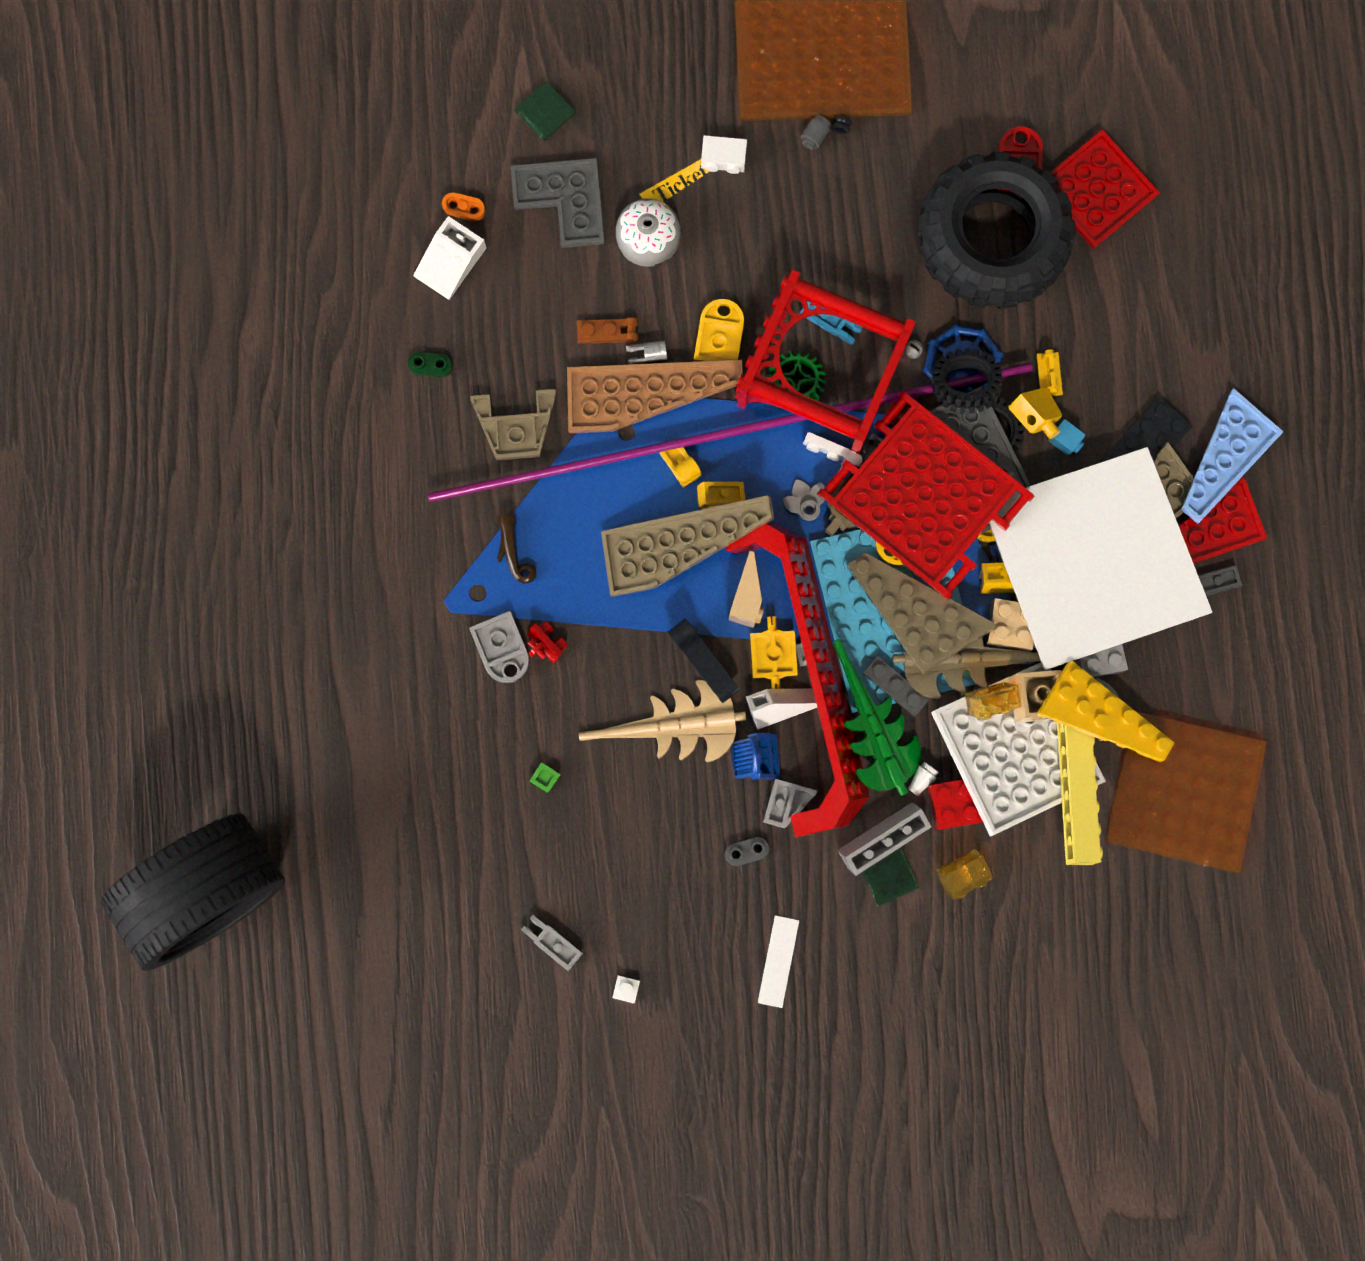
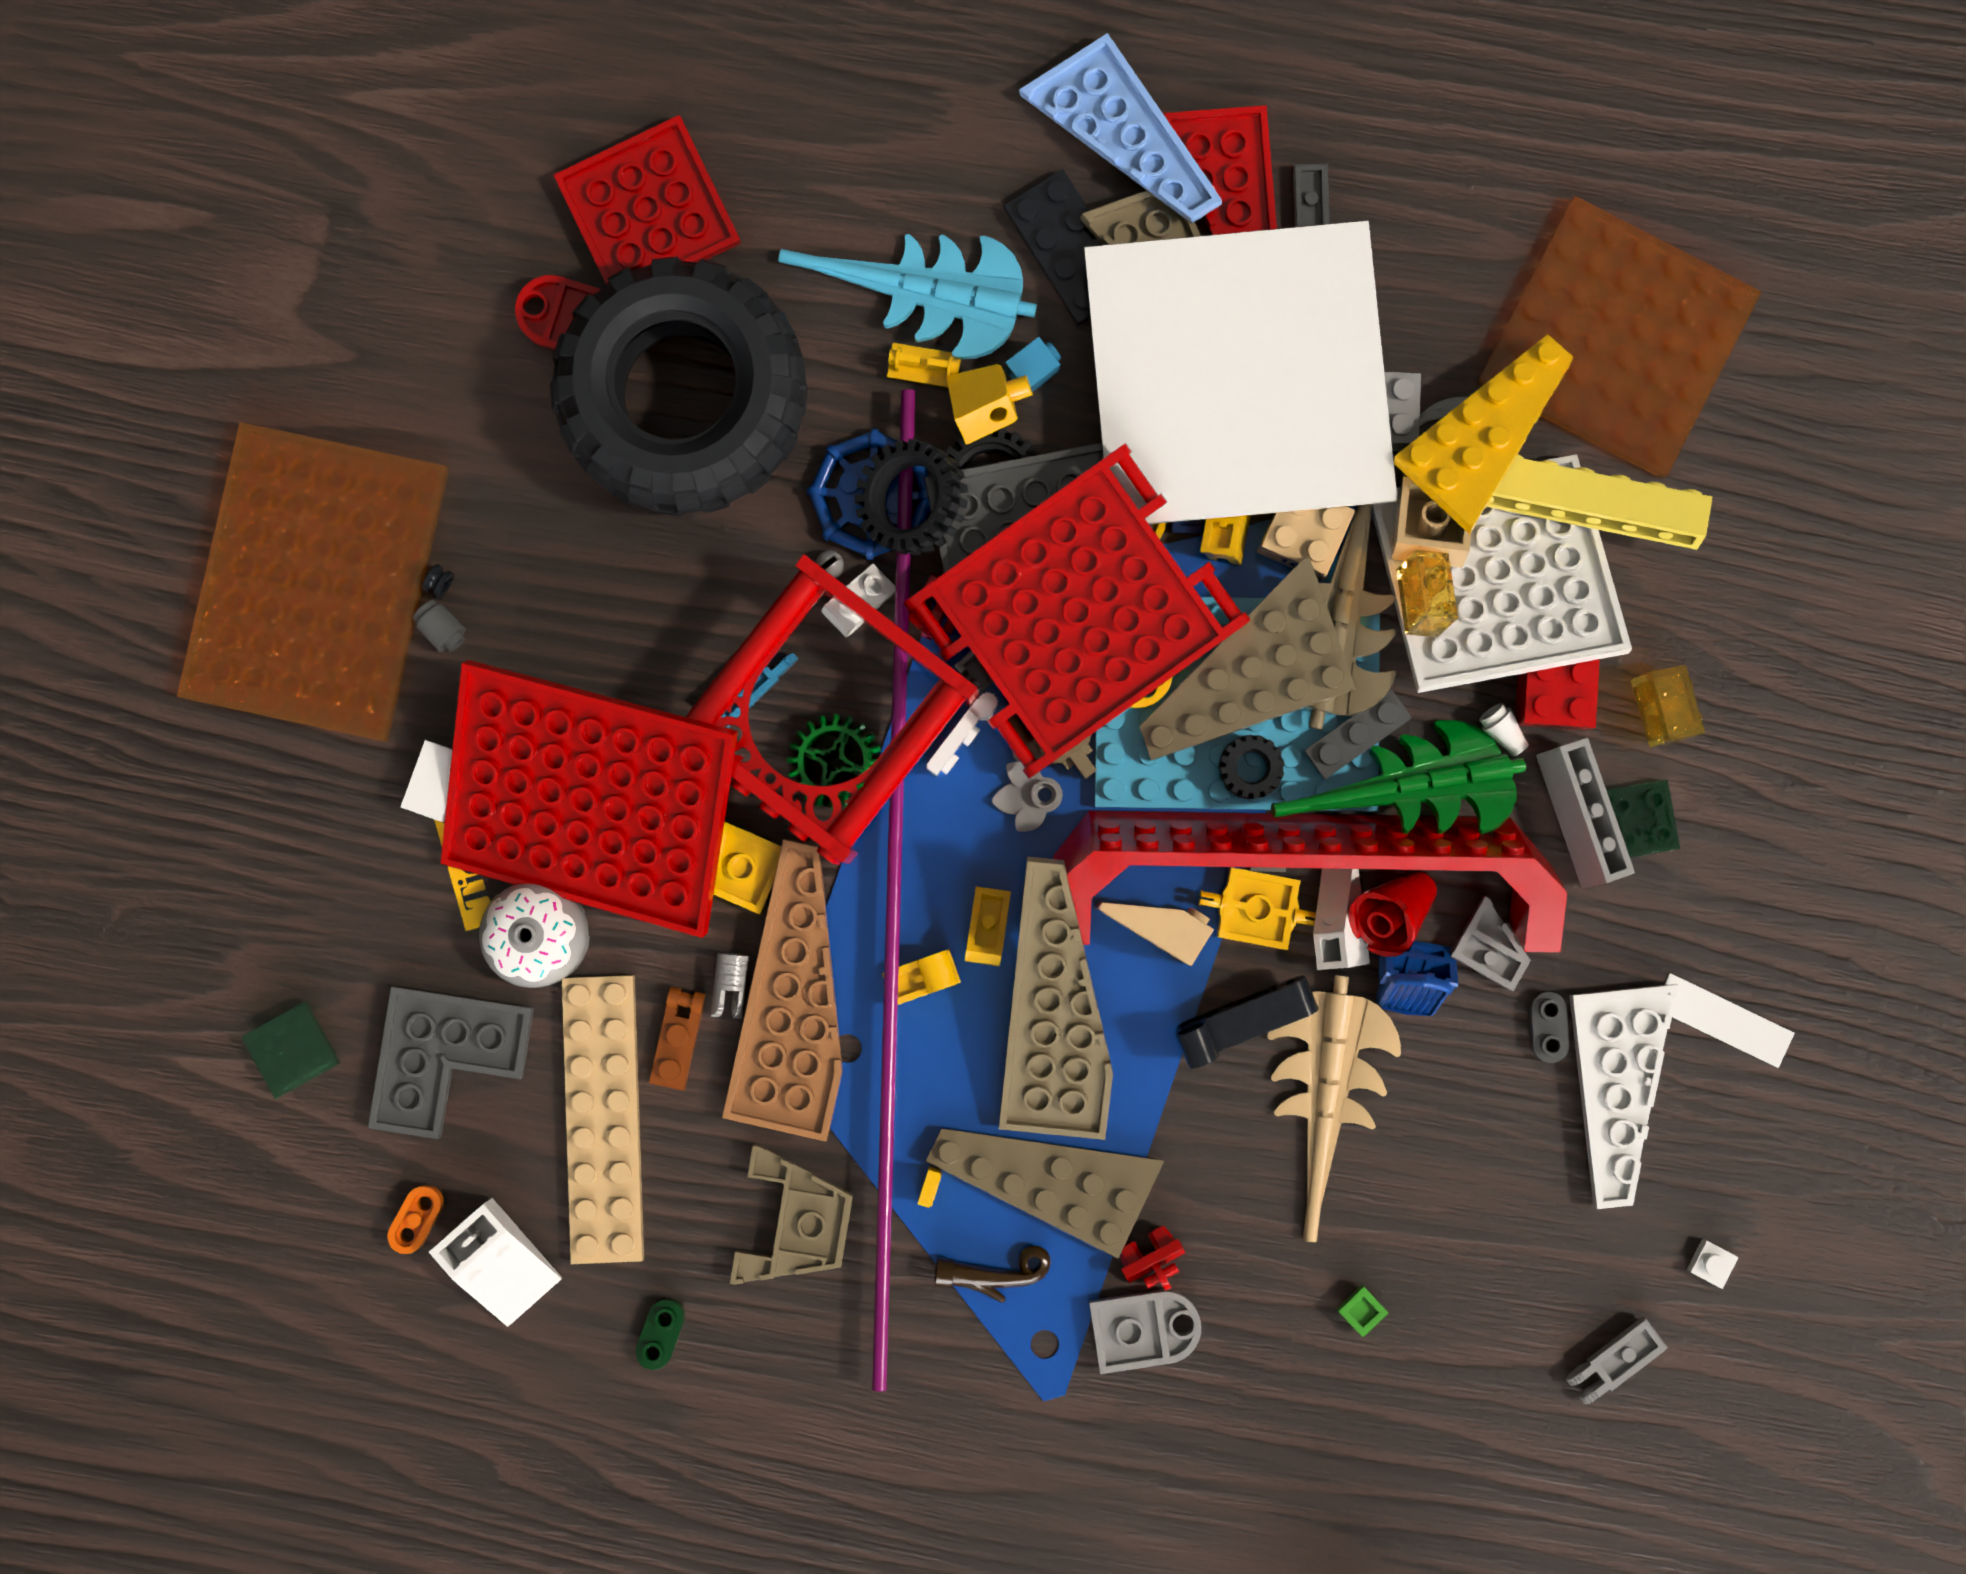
camera: 80 degrees left, 5 degrees up
(548, 299) = (602, 1119): none -> tan plate
(556, 498) = (930, 1187): none -> yellow tile
(575, 582) = (1070, 1188): none -> dark tan wing
(733, 900) = (1619, 1069): none -> white wing
(738, 237) = (587, 797): none -> red plate
(793, 732) = (1393, 913): none -> red cone
(868, 615) = (1273, 762): none -> black tyre
(904, 374) = (871, 587): none -> white plate
(1098, 399) = (983, 299): none -> medium azure animal

